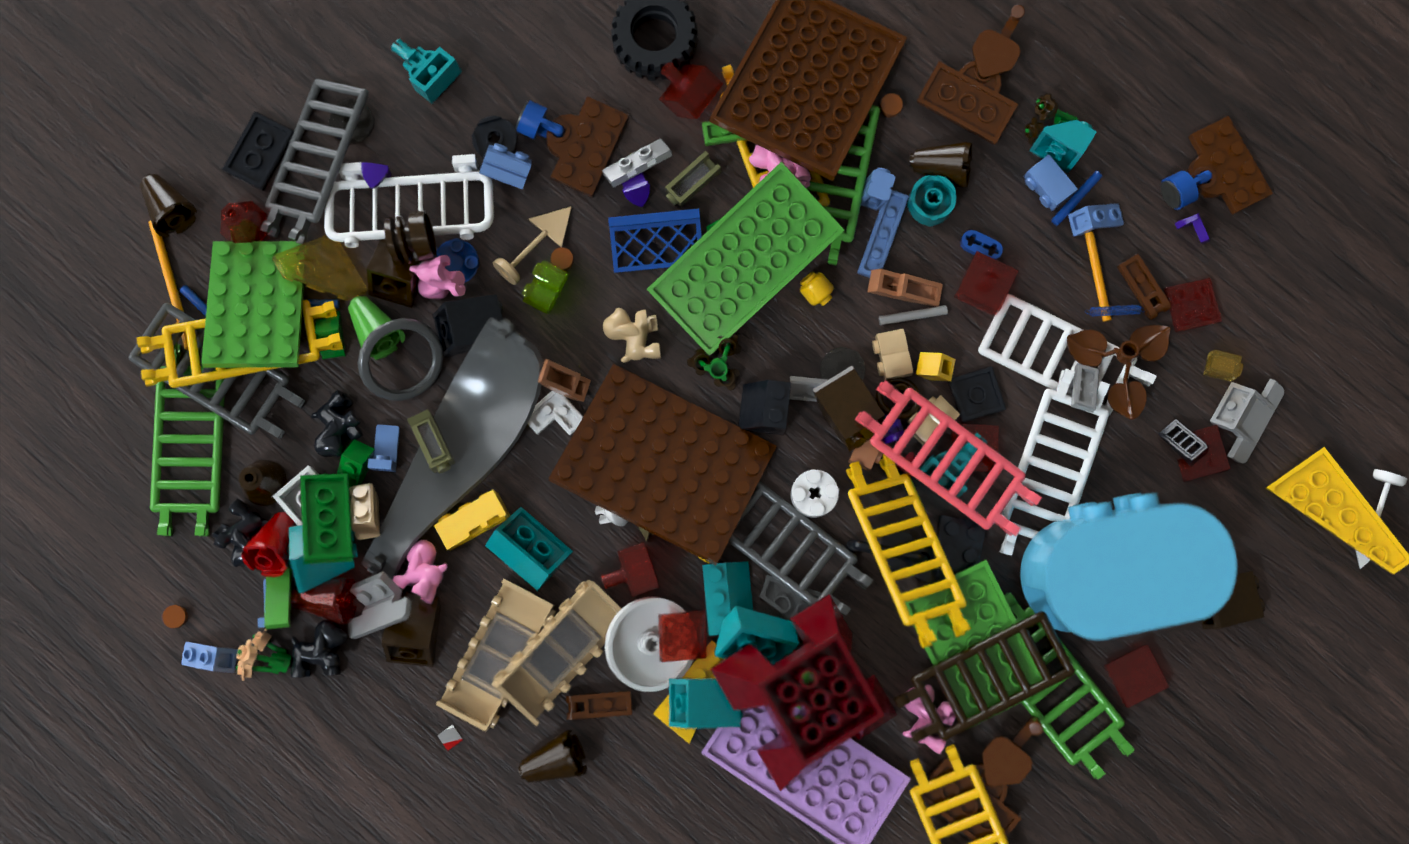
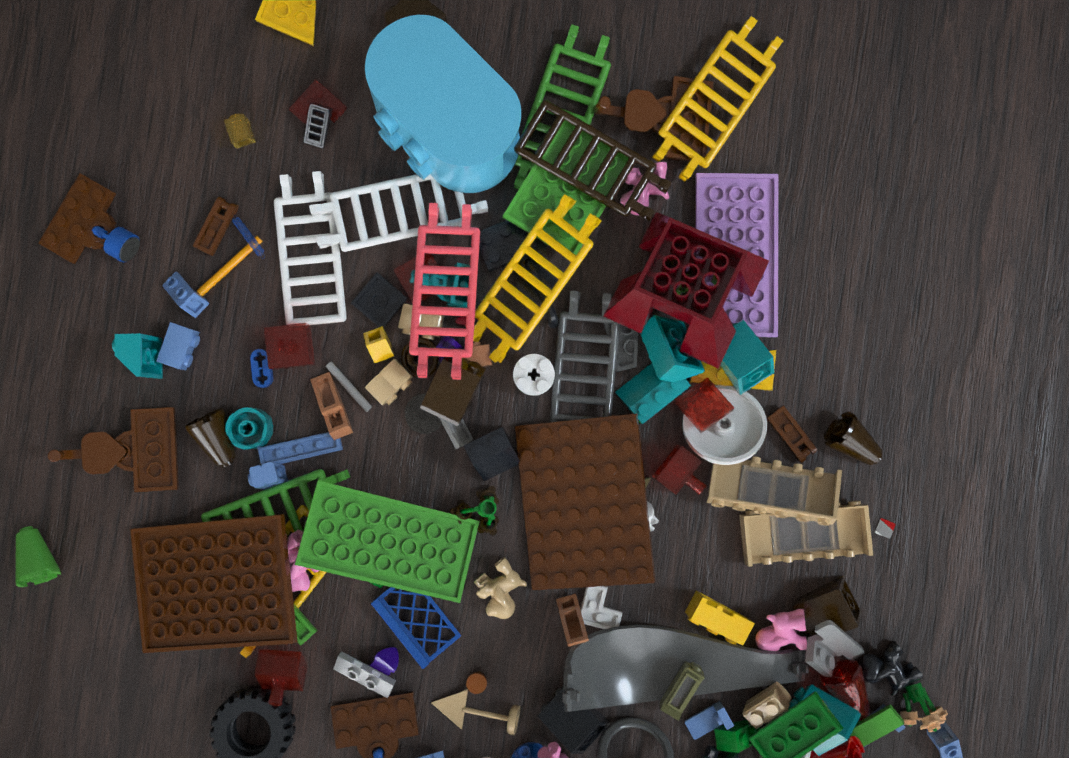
camera: 125 degrees left, 5 degrees up
(528, 548) = (711, 562): teal slope -> none
(545, 287) = (506, 681): clear neon green brick -> none
(692, 180) = (351, 623): olive window -> none
(816, 289) = (375, 472): yellow head -> none
(891, 105) = (193, 507): dark orange piece -> none
(1047, 109) = (120, 384): dark brown plant -> none
(1076, 198) = (177, 319): blue bar -> none
(1085, 388) = (323, 222): light grey plate -> none
(1136, 676) = (515, 55): clear red tile -> none
(1149, 341) = (258, 199): reddish brown plant -> none
(1193, 305) = (206, 181): clear red tile -> none
(1198, 225) = (141, 213): dark purple tile -> none
(1246, 415) = (267, 91): light grey plate -> none

